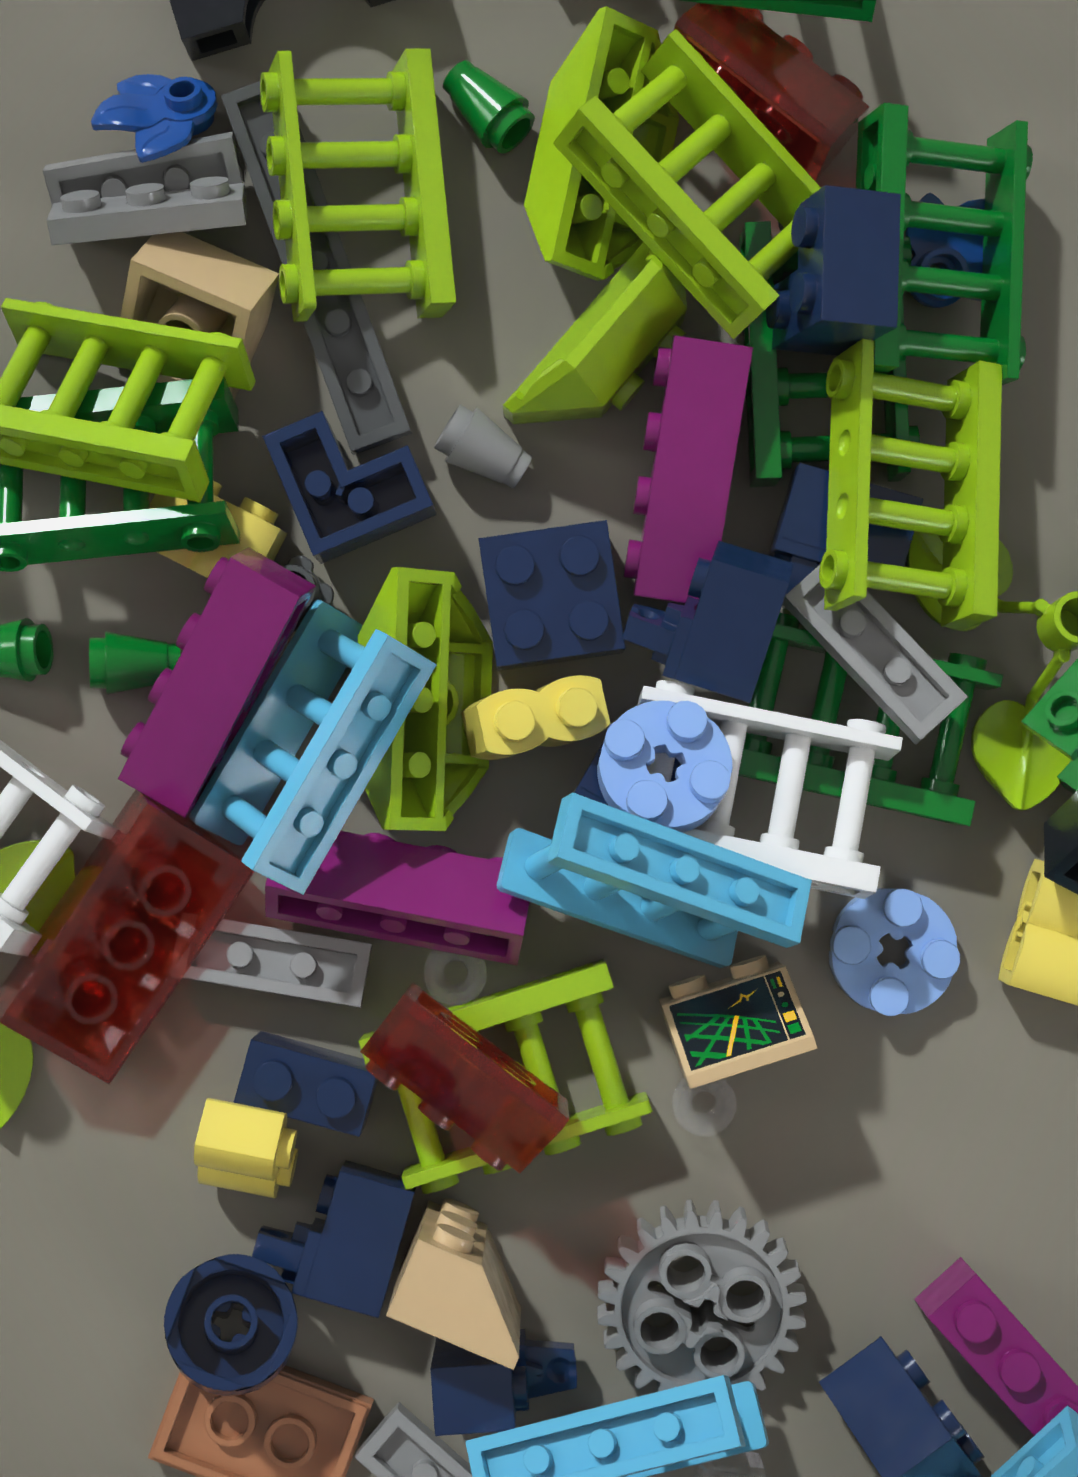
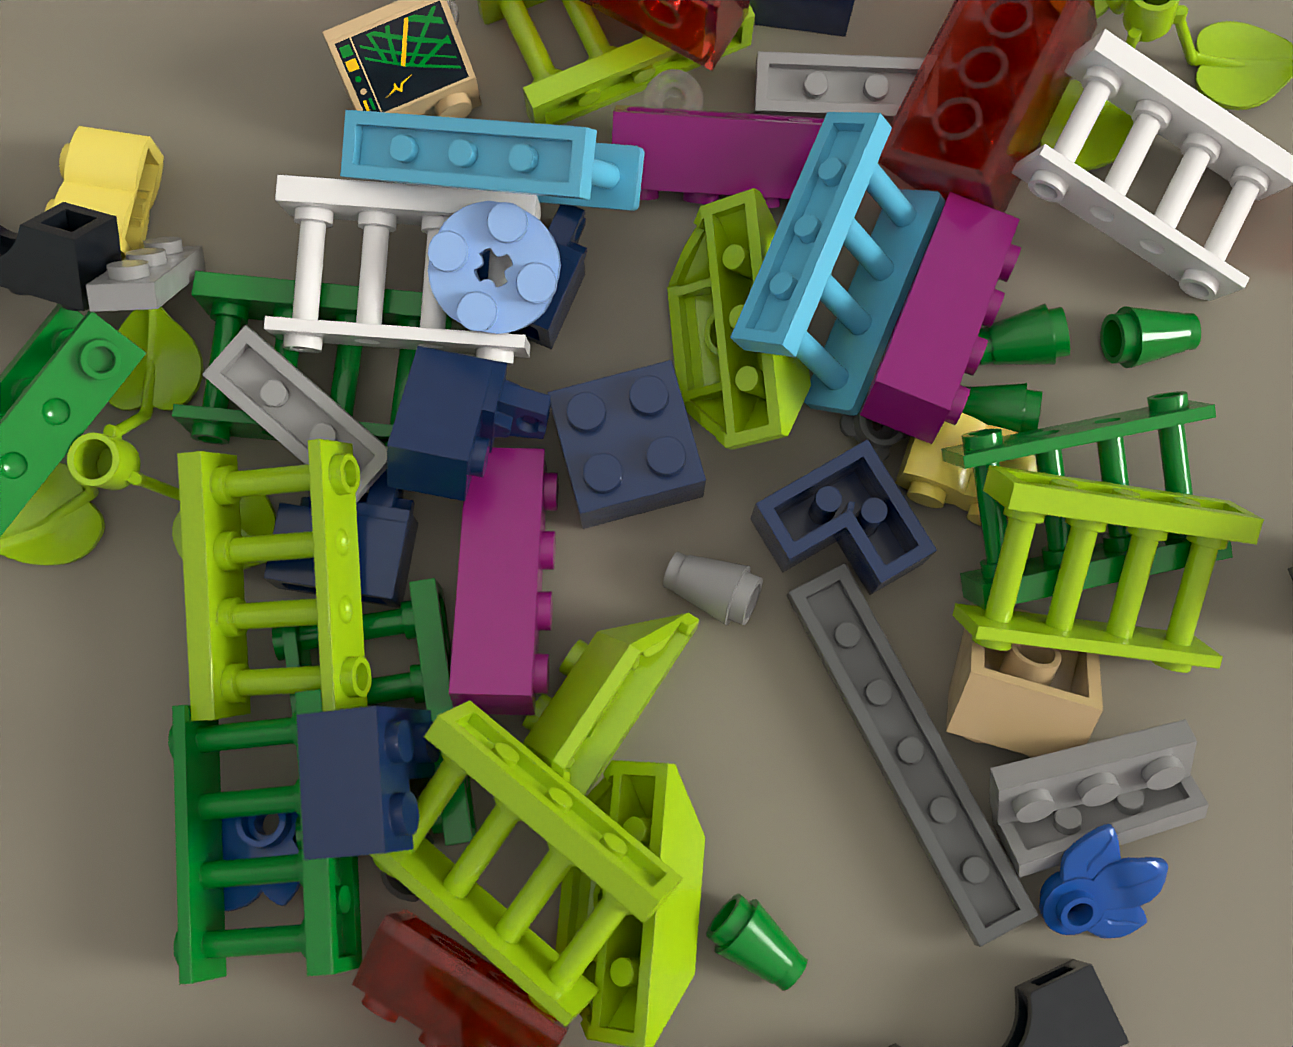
camera: 170 degrees right, 10 degrees down
(166, 588) = (1005, 406): none -> green cone
(412, 152) = (829, 877): lime fence -> none
(527, 718) = (614, 330): light yellow brick -> none
(930, 955) = (243, 140): light blue plate -> none
(1017, 813) = (146, 276): none -> light grey plate

